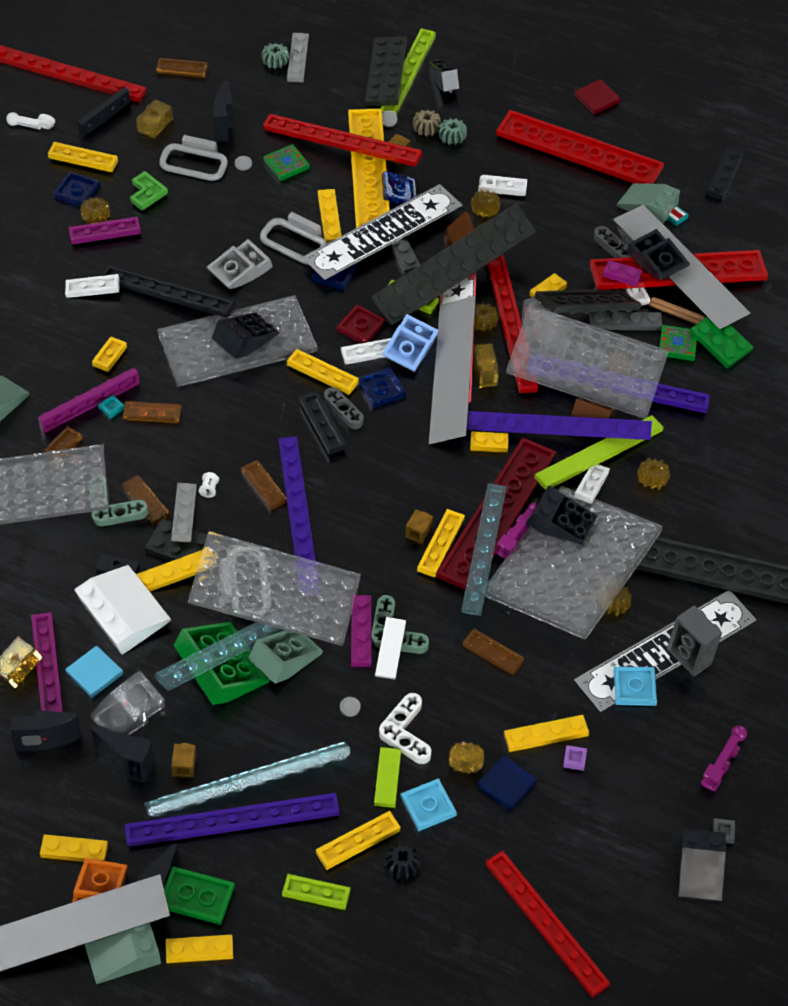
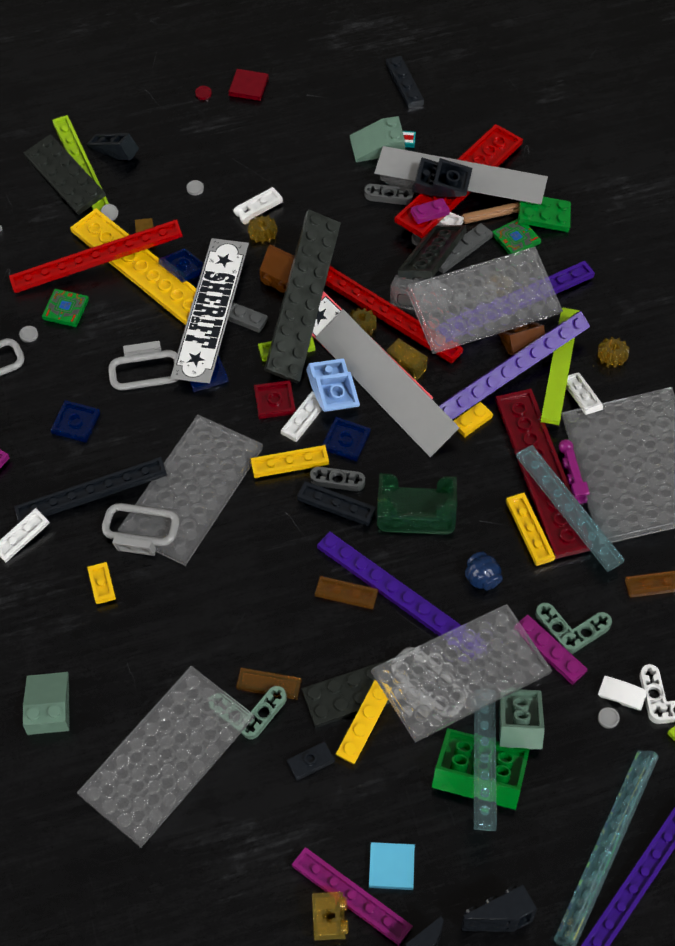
camera: 40 degrees left, 5 degrees up
(65, 440) = (147, 692): clear orange tile -> none
(88, 400) = (126, 645): magenta plate -> none
(111, 406) = (151, 627): teal tile -> none
(122, 607) = (357, 791): white slope -> none
(129, 705) = (455, 872): clear slope -> none
(152, 411) = (190, 604): clear orange tile -> none
(160, 347) = (138, 543): none -> light grey bar
(183, 760) = (544, 875): pearl gold brick -> none
(184, 512) = (315, 668): light grey plate -> none
(207, 484) = (307, 628): white bush -> none
(209, 241) = (75, 421): none -> clear blue tile
(240, 265) = (125, 422): light grey slope -> none
(243, 334) = (199, 478): black slope -> none
(329, 215) = (150, 327): yellow plate -> none
(371, 542) = (483, 571): none -> dark blue hair
(372, 466) = (417, 508): none -> clear green windscreen
(376, 697) = (622, 692): none -> white slope
(390, 648) = (591, 644): white tile -> none
(419, 526) = (501, 528): pearl gold brick -> none
(426, 122) = (144, 194): dark tan gear -> none
(452, 131) = (172, 188): sand green gear -> none
(472, 143) = (195, 187): none -> light grey piece
(552, 283) = (380, 264): yellow plate -> none
(556, 81) = (203, 92): none -> dark red piece
(561, 517) = (597, 437): black slope -> none
(579, 148) = (281, 135): red plate -> none

